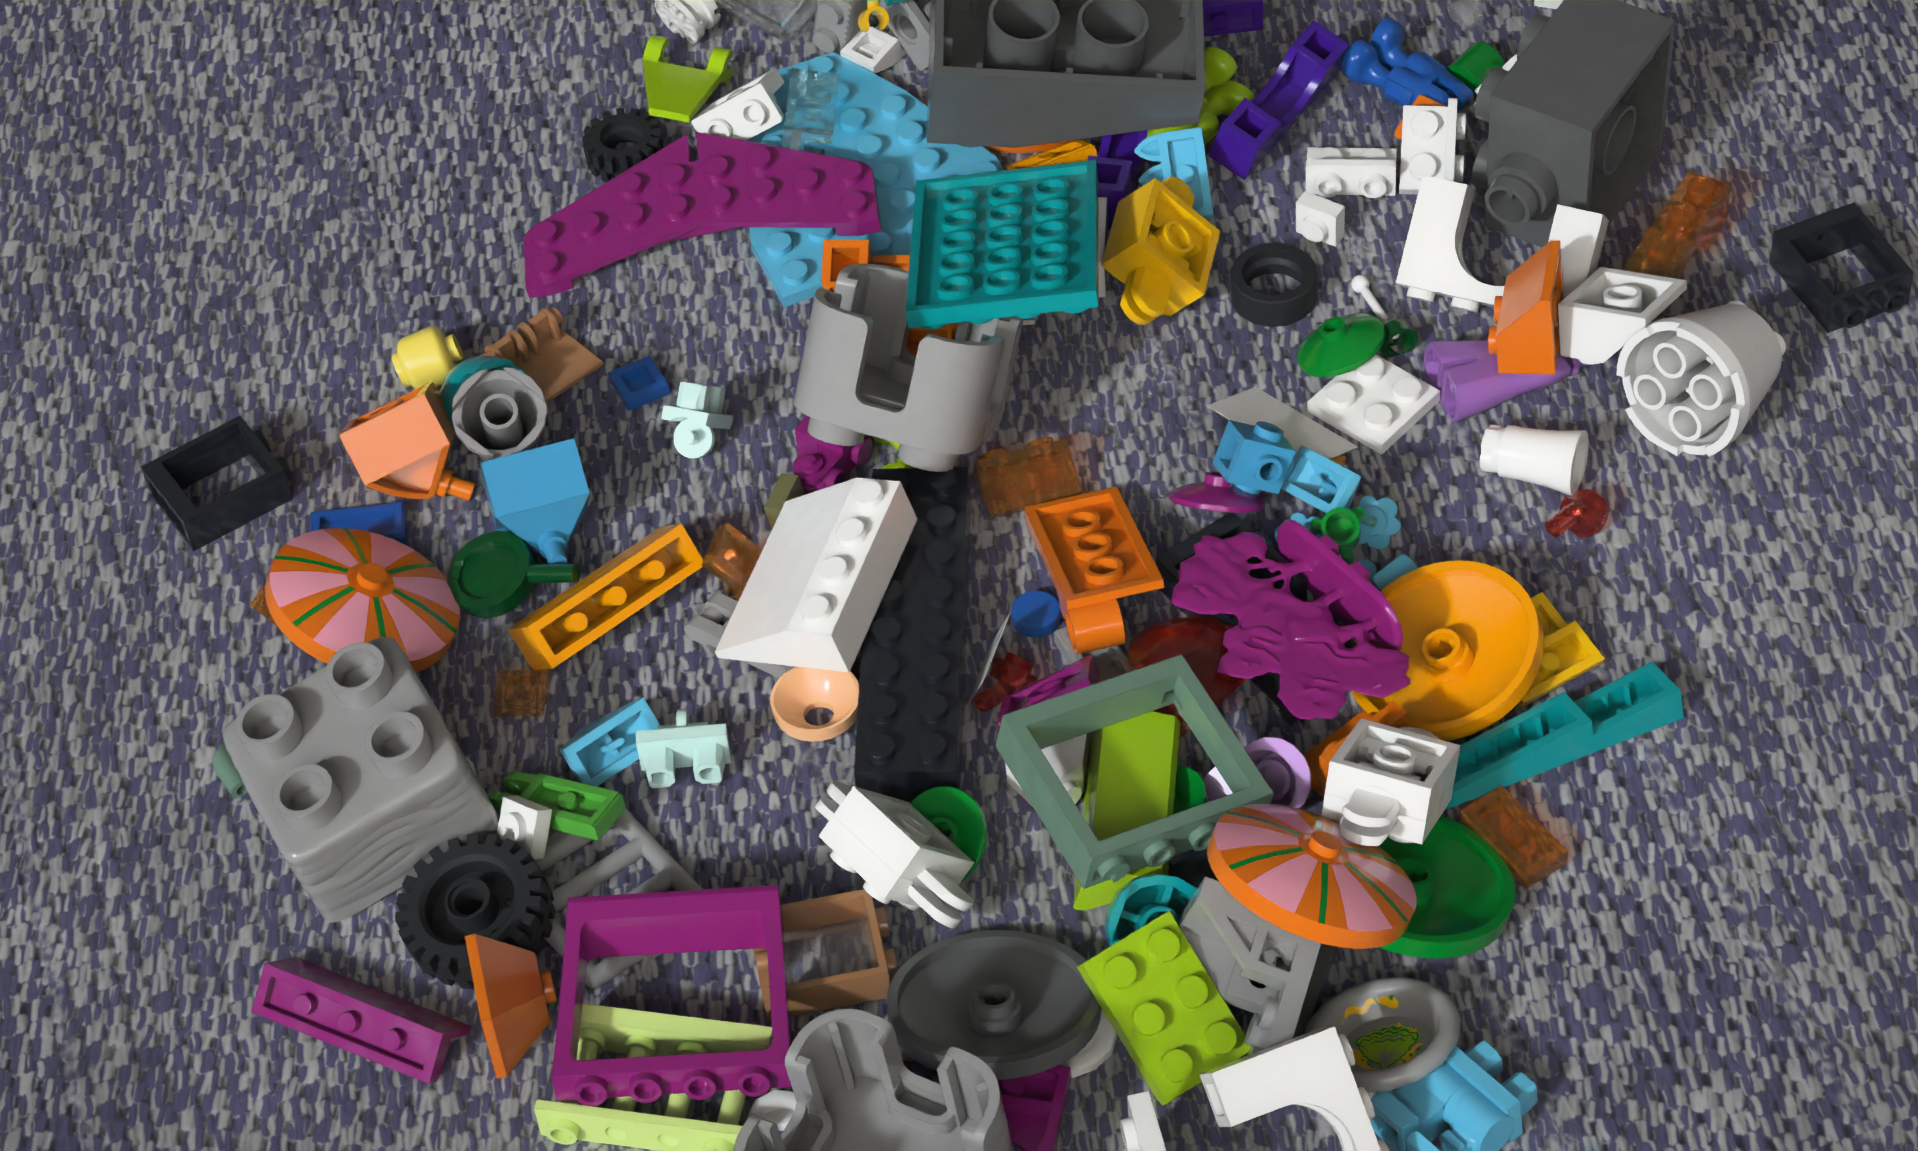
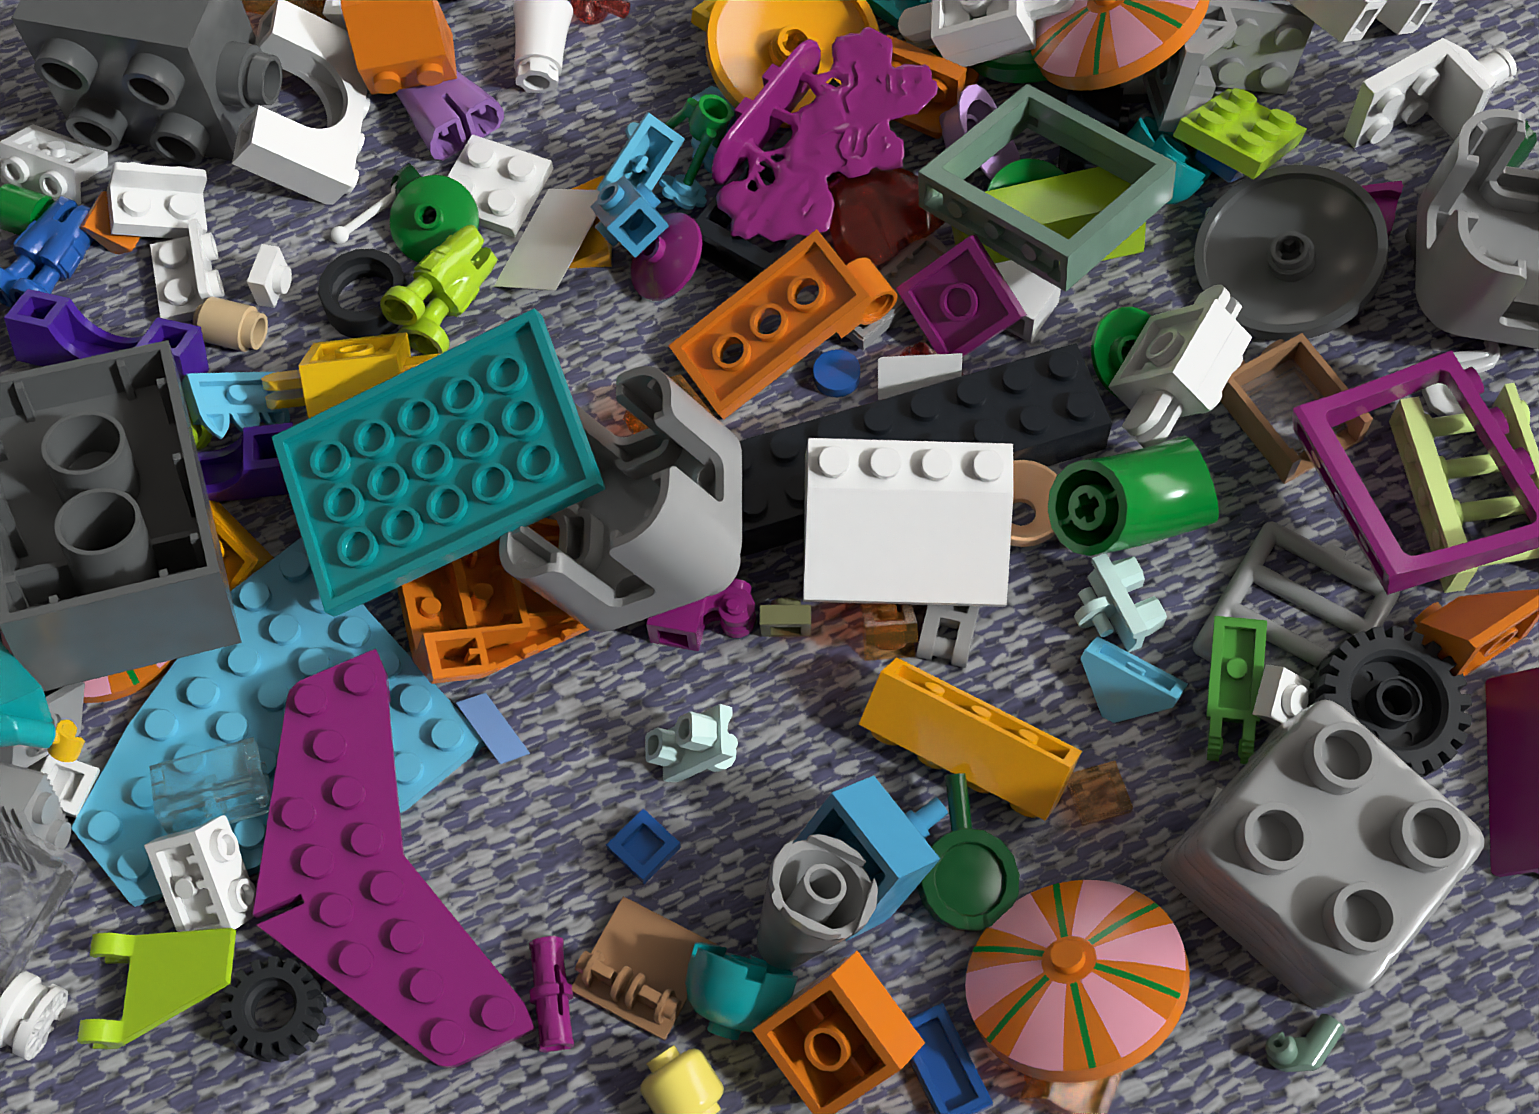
camera: 110 degrees left, 15 degrees up
(572, 306) = (551, 994): none -> magenta pin
(767, 779) = (1132, 498): none -> green brick
(785, 307) = (492, 728): none -> medium blue sticker
(1254, 340) = (451, 278): none -> lime piece
(1276, 189) = (231, 324): none -> tan brick

